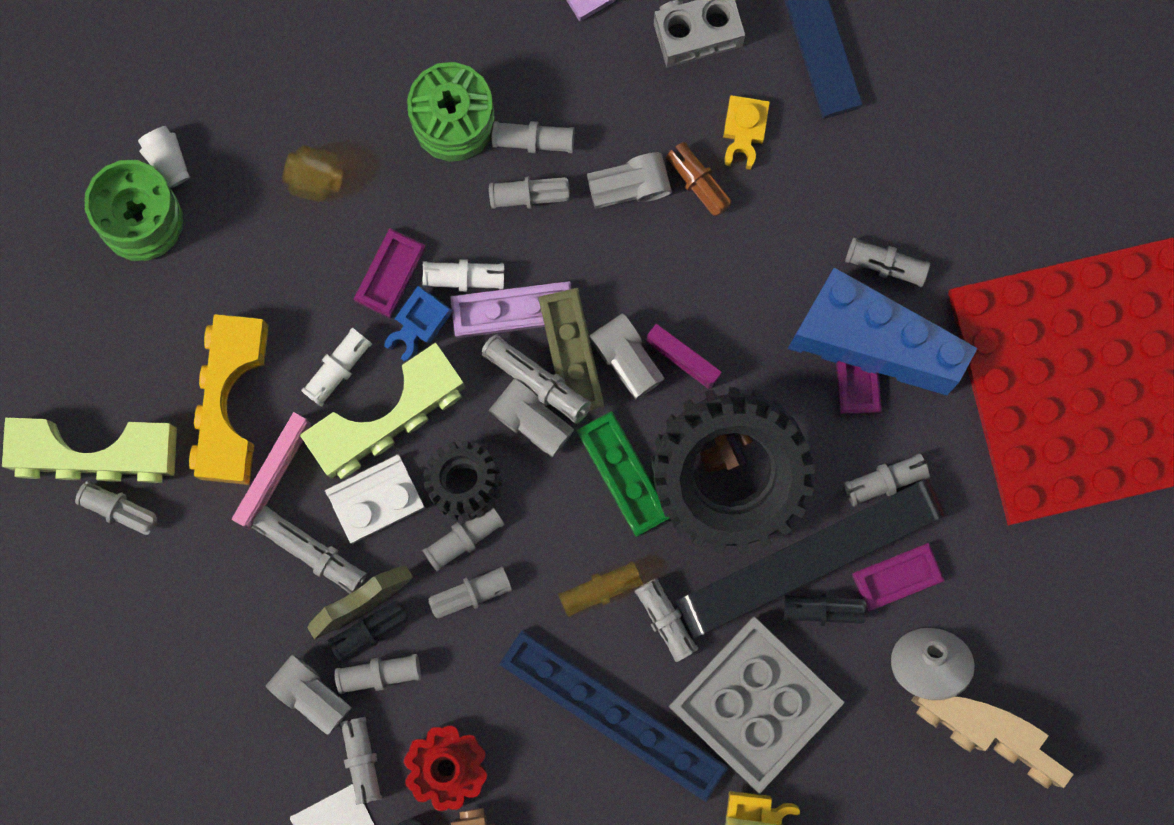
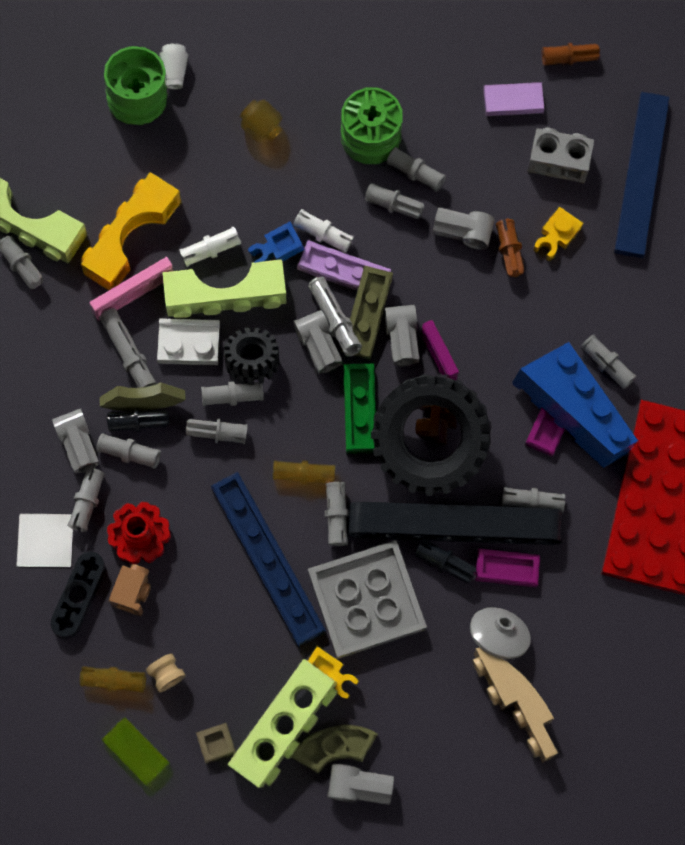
camera: 25 degrees right, 10 degrees down
(390, 273) = (276, 208): magenta tile -> none

